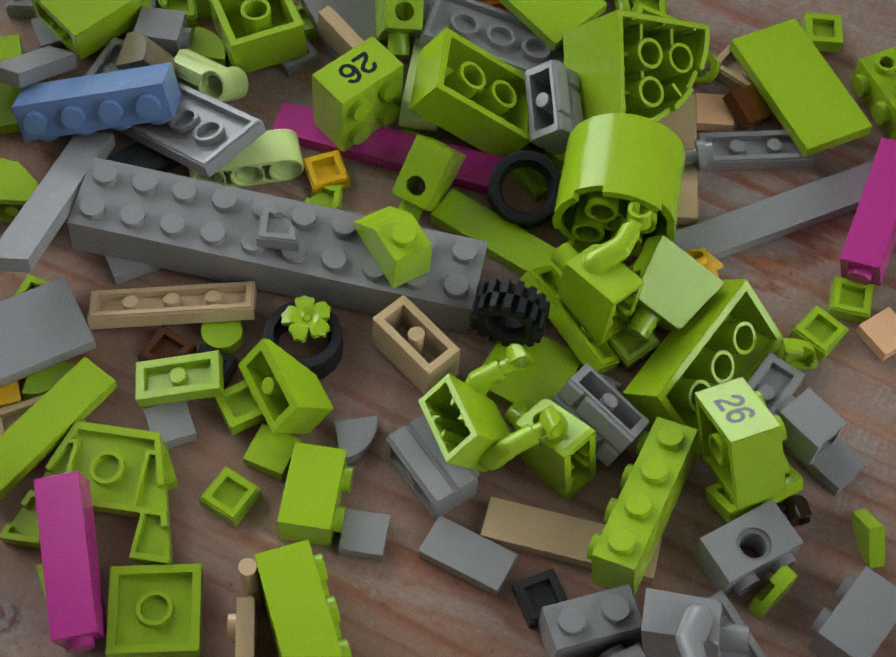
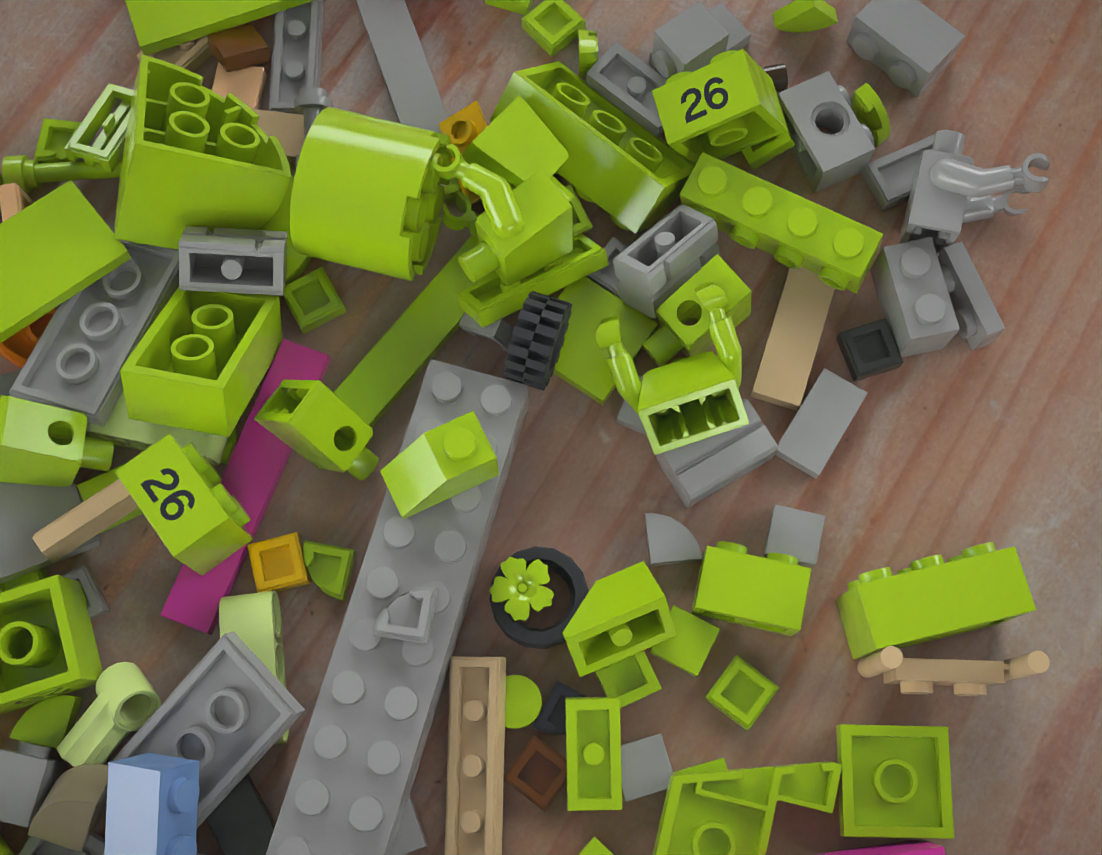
camera: 80 degrees left, 15 degrees up
(414, 344) = (564, 458): tan brick -> none
(518, 160) = (361, 283): black tyre -> none

